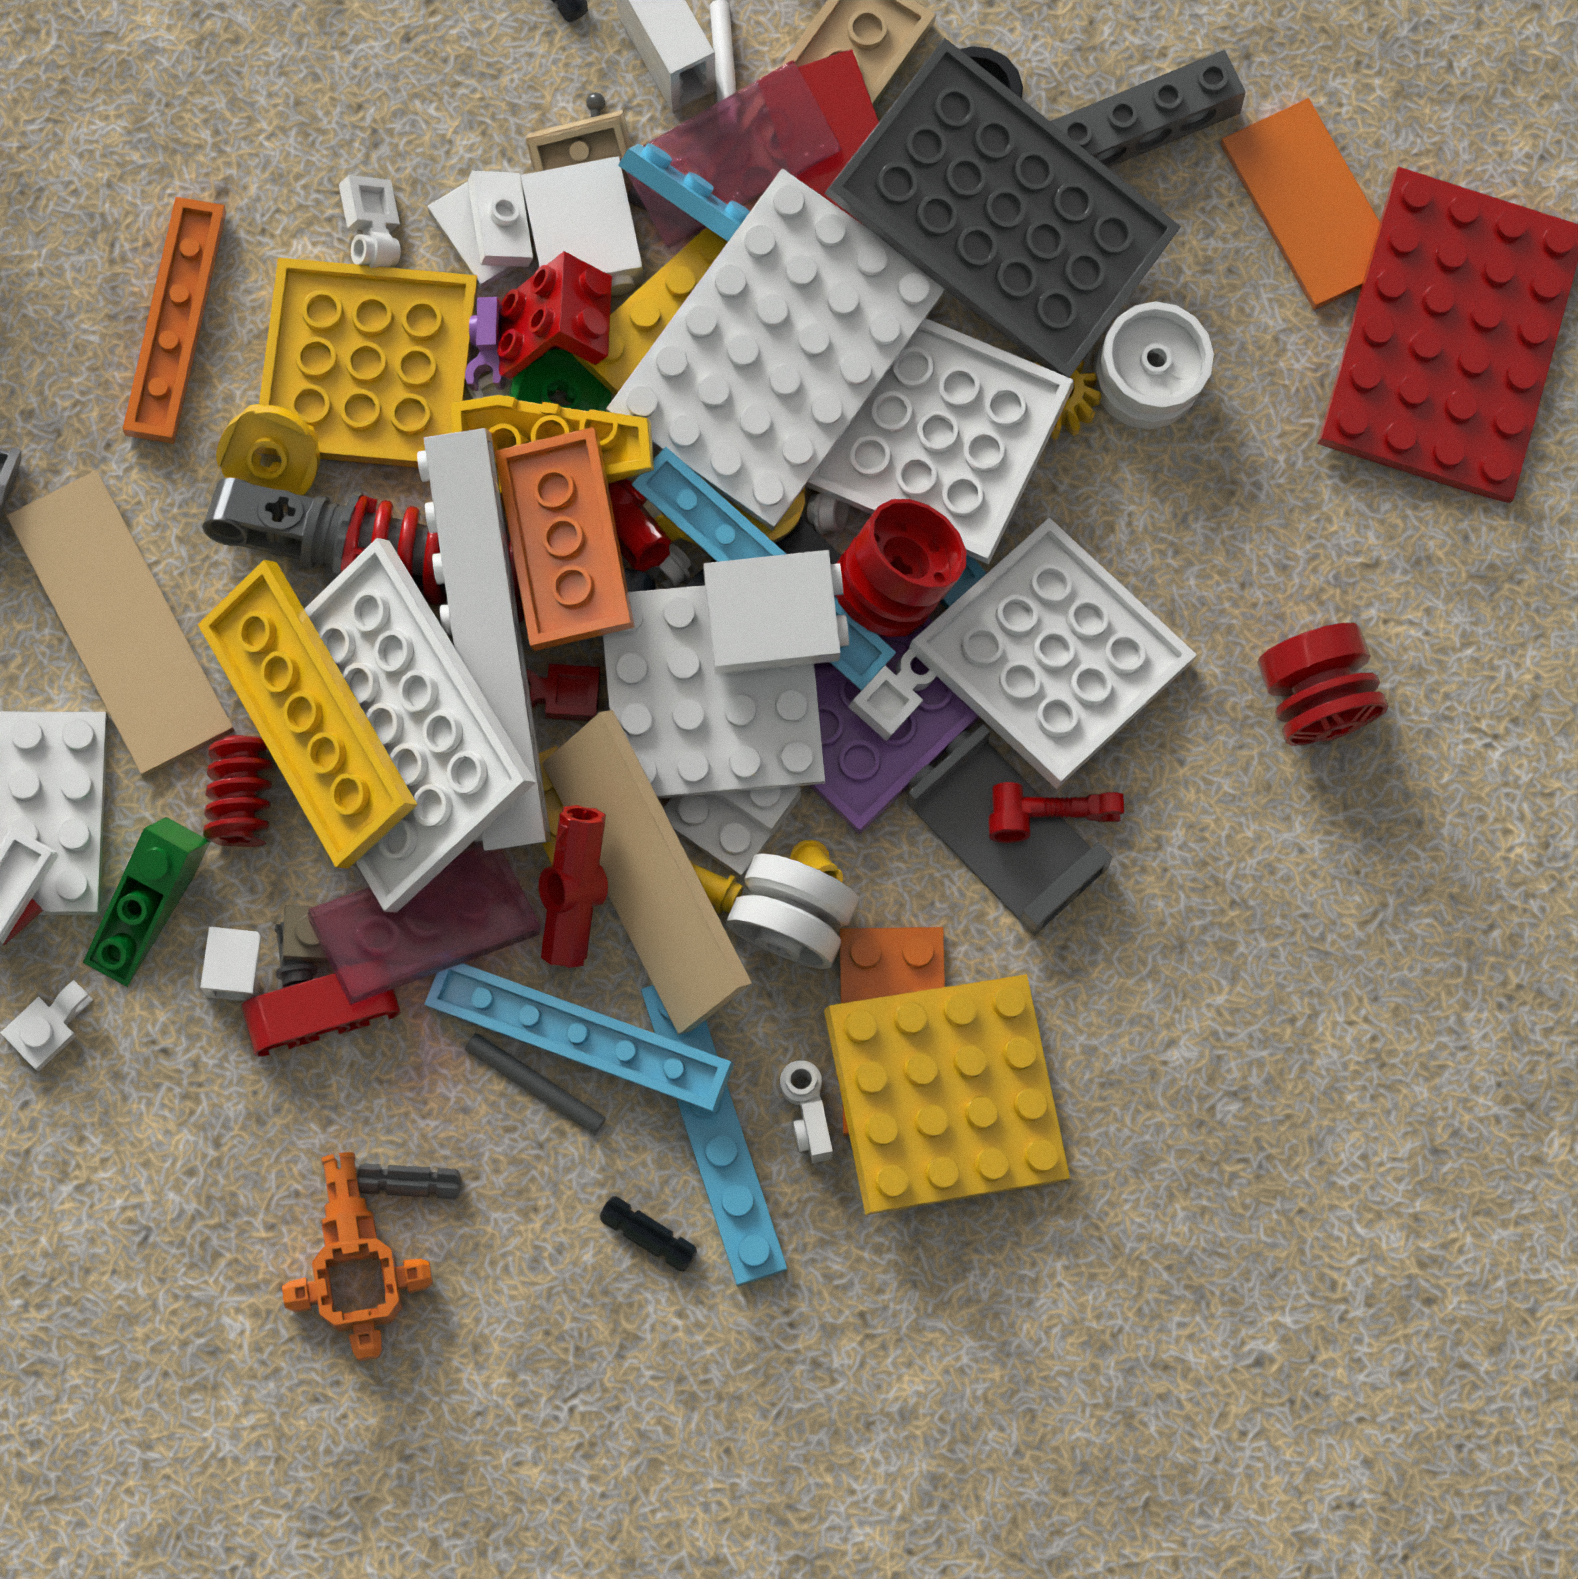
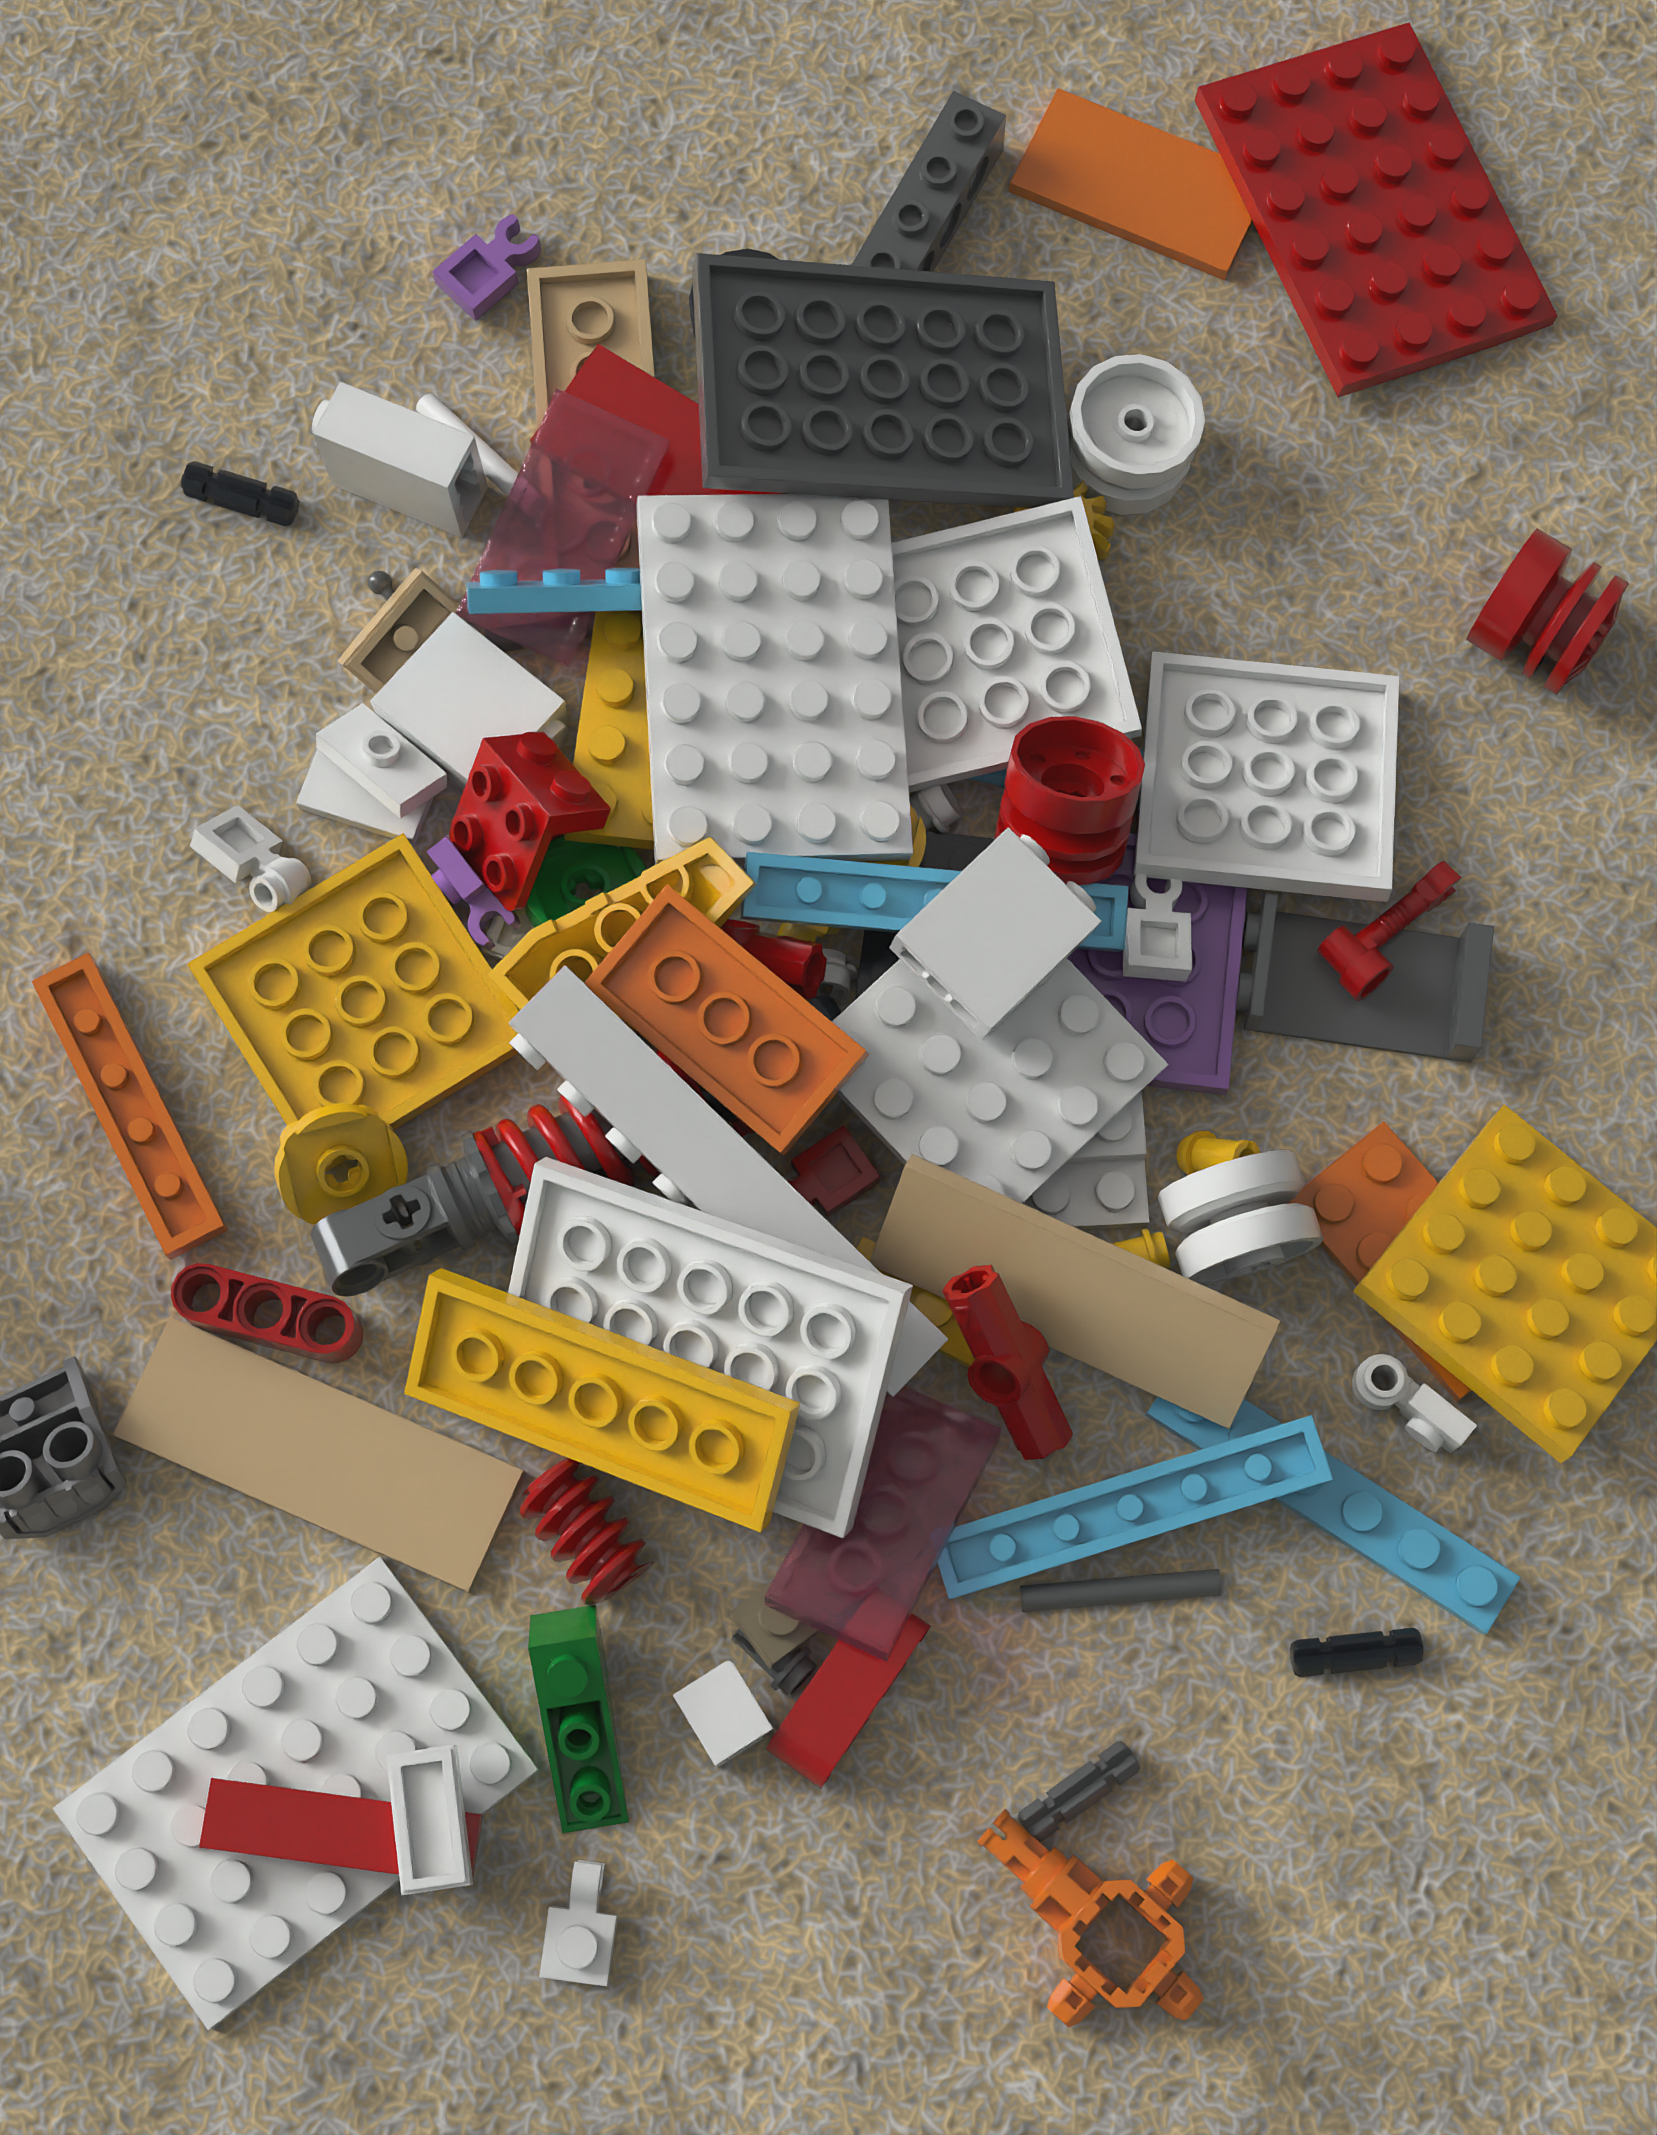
camera: 35 degrees left, 0 degrees up
(148, 491) = (242, 1296): none -> red beam

